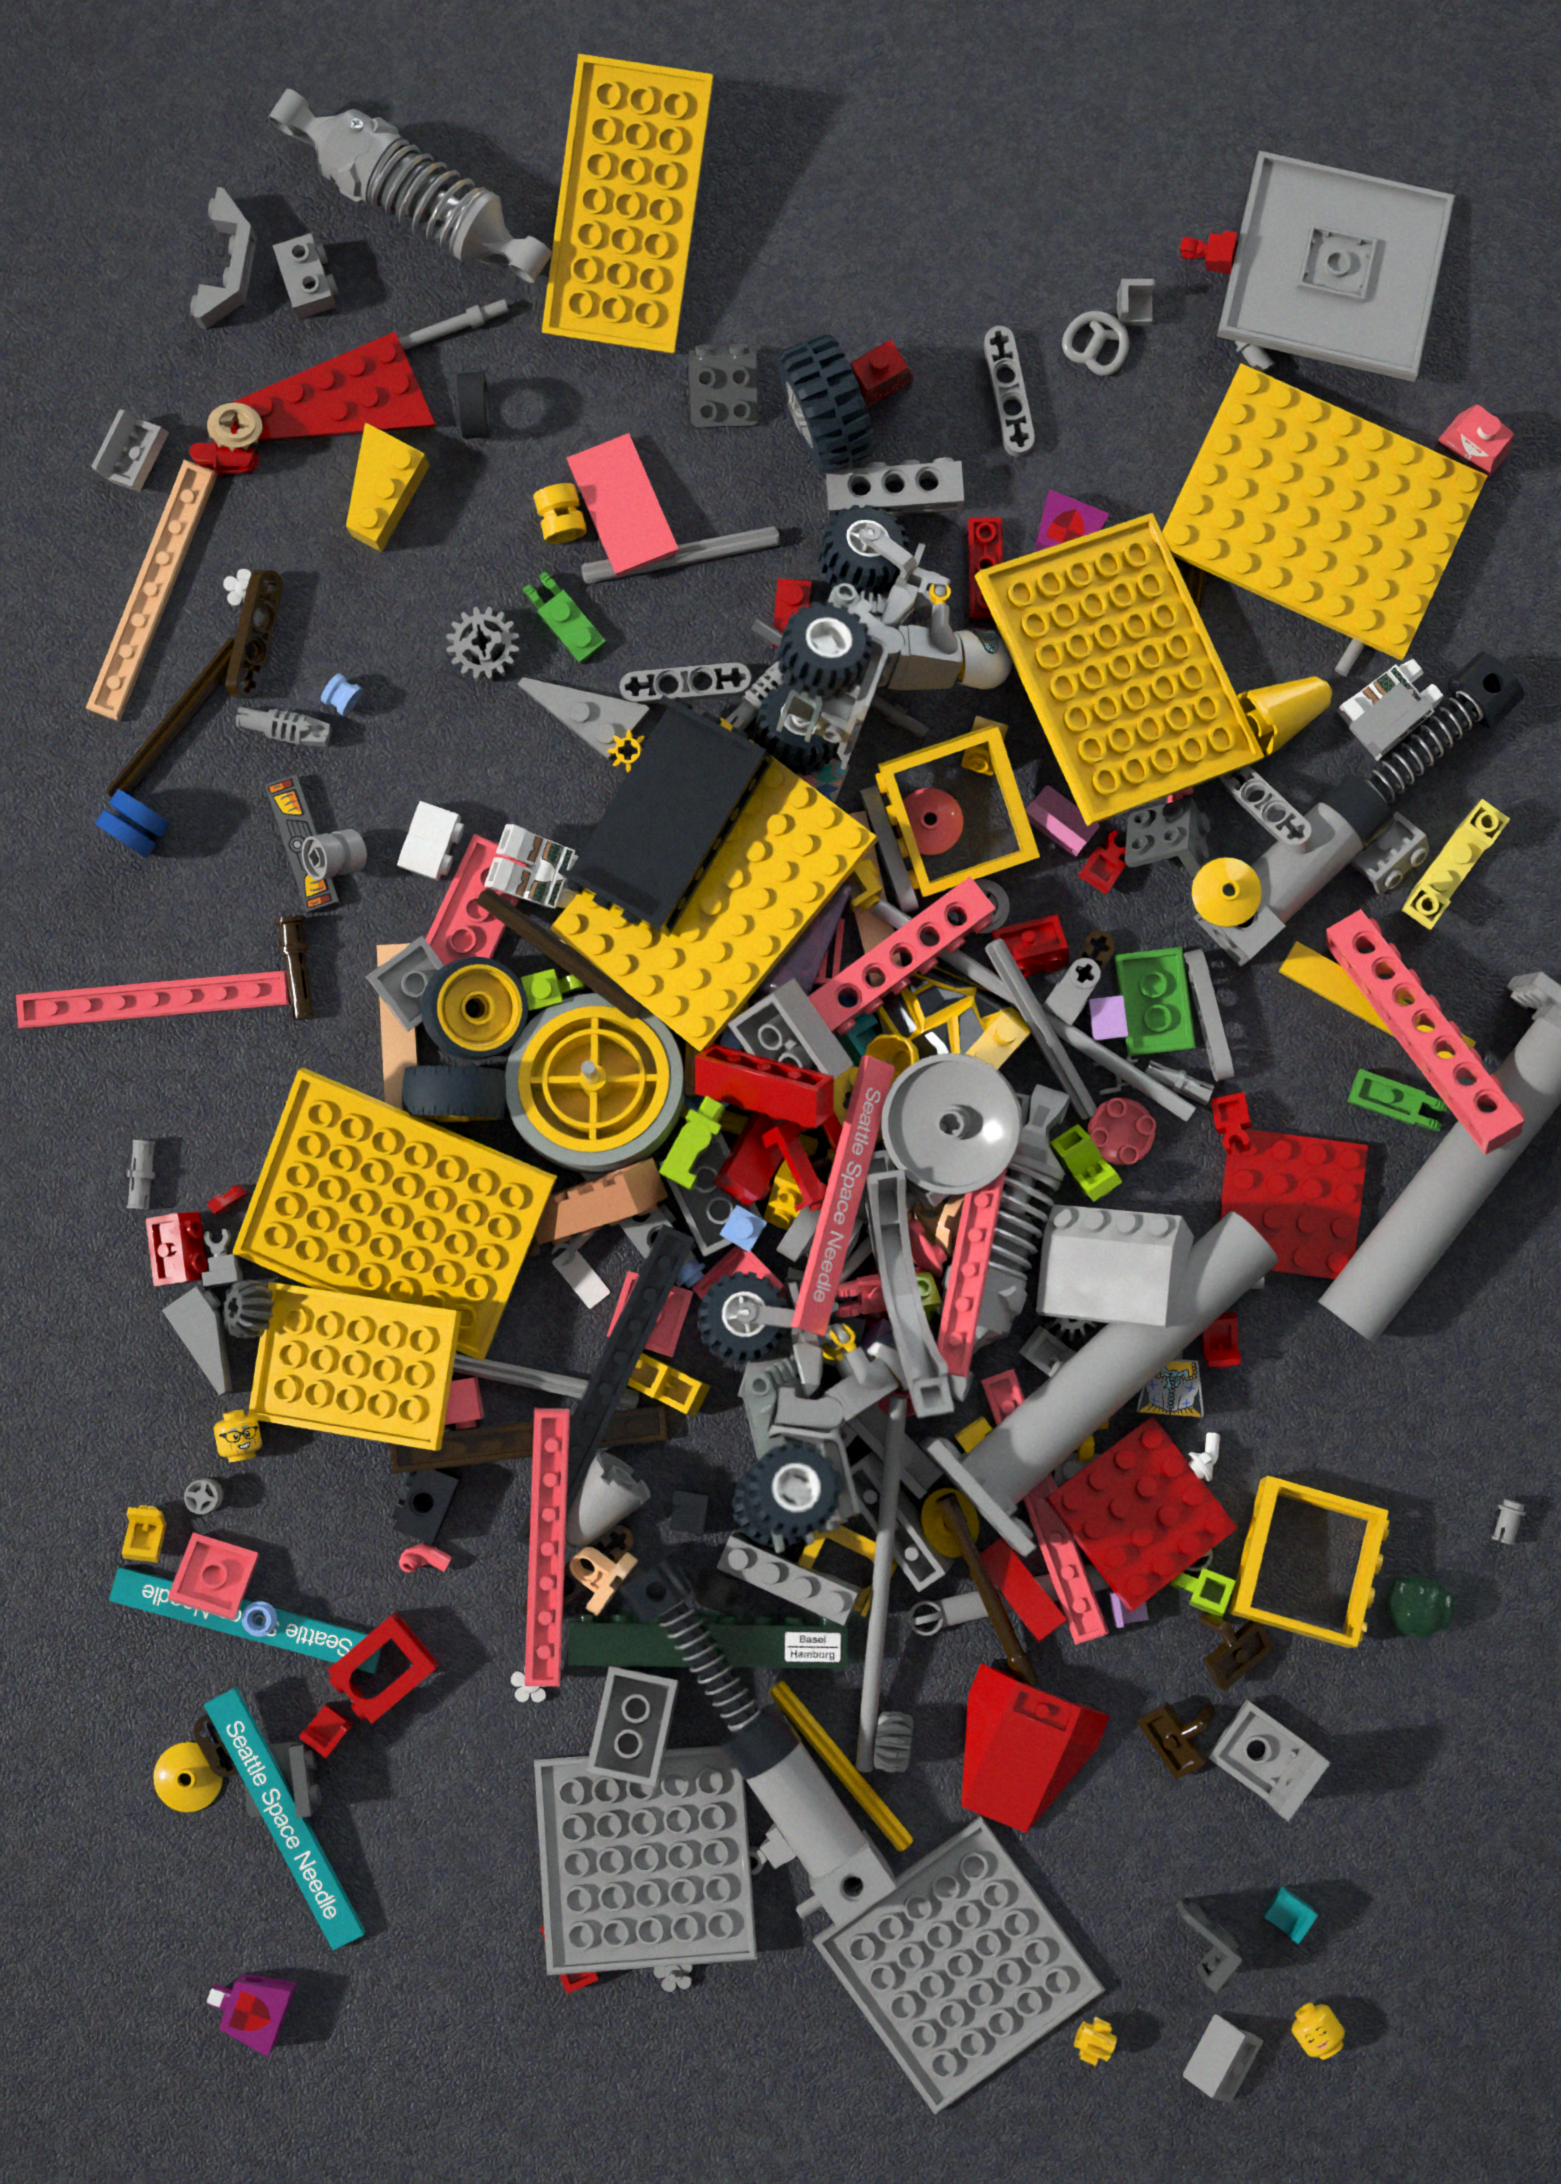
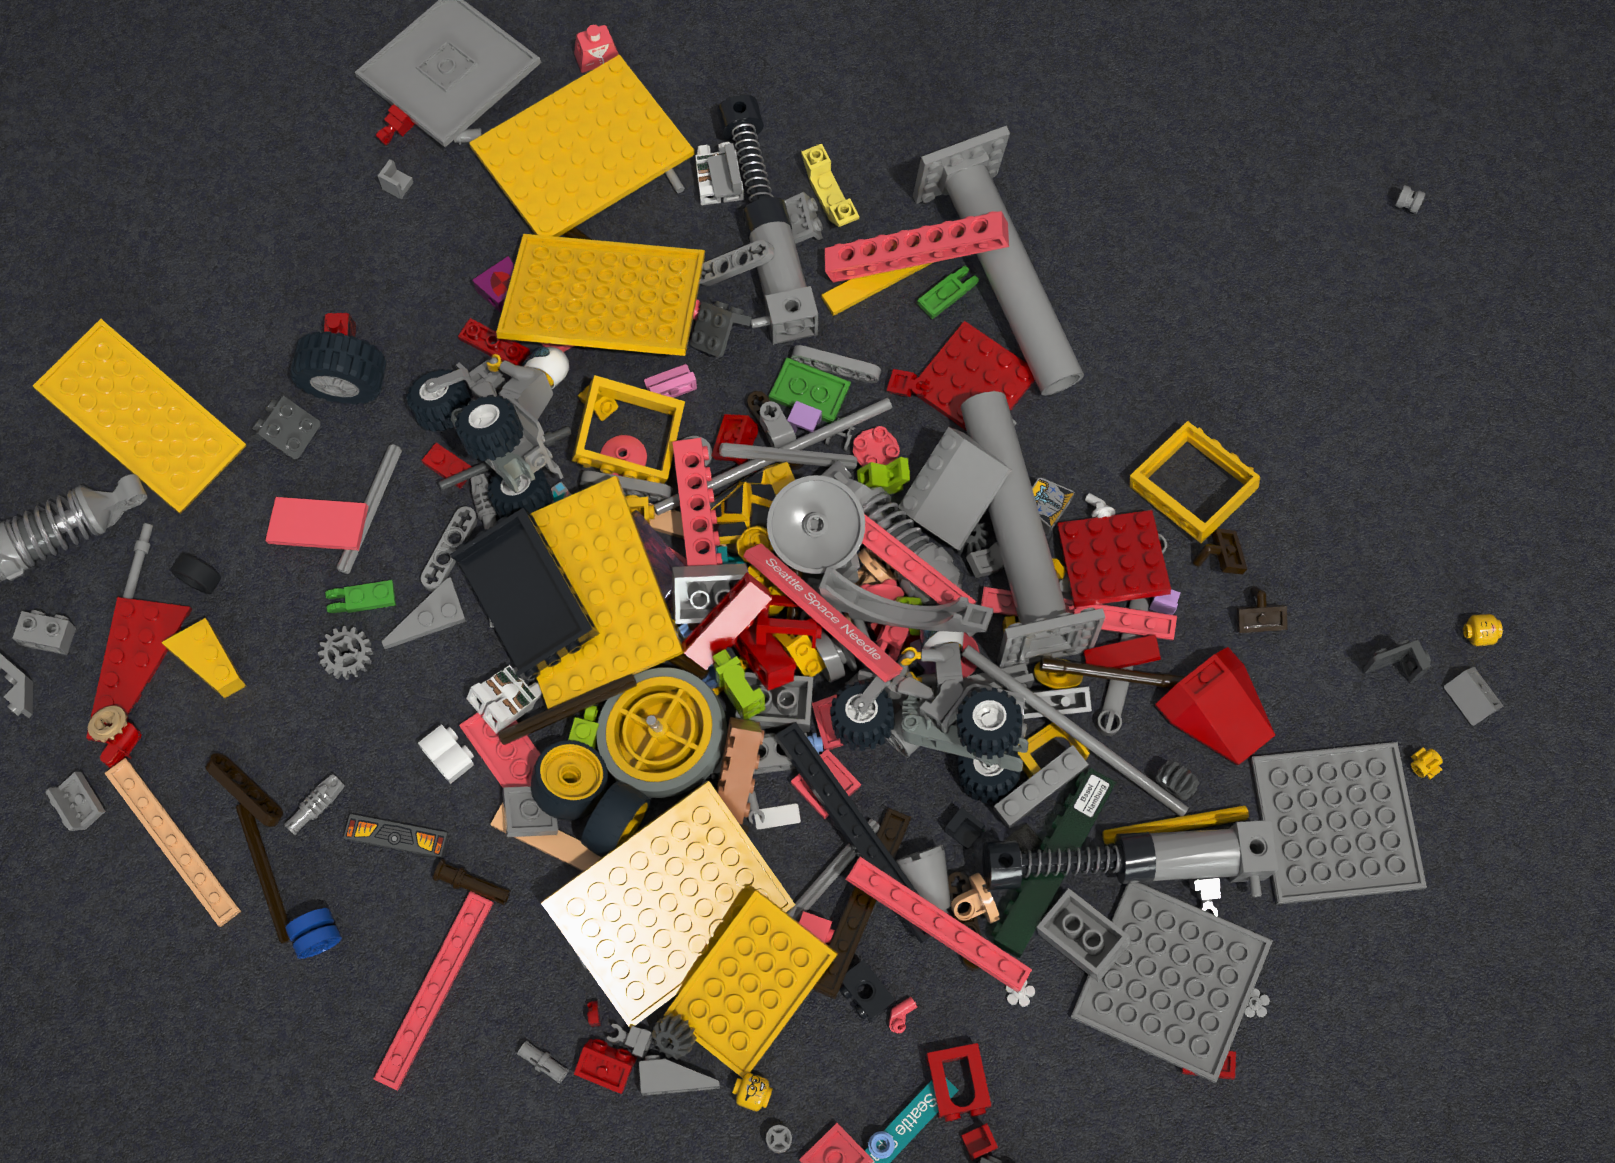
camera: 70 degrees left, 15 degrees down
(237, 587) = (208, 784): white plant -> none
(333, 854) = (416, 815): light grey wheel -> none
(341, 694) = (318, 757): light blue wheel -> none
(561, 519) = (293, 561): yellow wheel -> none
(622, 744) = (470, 608): yellow gear -> none
(668, 1385) = (876, 797): yellow slope -> none
(743, 1228) = (806, 689): light blue plate -> none
(911, 500) = (424, 333): light grey brick -> none
(1009, 391) = (400, 272): light grey beam -> none
(1089, 356) = (402, 211): light grey piece -> none
(1103, 865) = (711, 372): red plate -> none
(1179, 1082) = (866, 400): light grey pin -> none
(1209, 1591) = (1182, 547): lime brick -> none
(1216, 906) = (771, 315): yellow dish -> none
(1220, 1342) = (1035, 461): red bracket -> none
(1283, 1772) = (1314, 560): light grey bracket -> none
(1284, 710) = (683, 226): yellow cone -> none
(1290, 1914) = (1403, 607): teal panel -> none
(1419, 1606) = (1253, 437): clear green hair -> none
(1509, 1521) = (1228, 362): light grey pin -> none

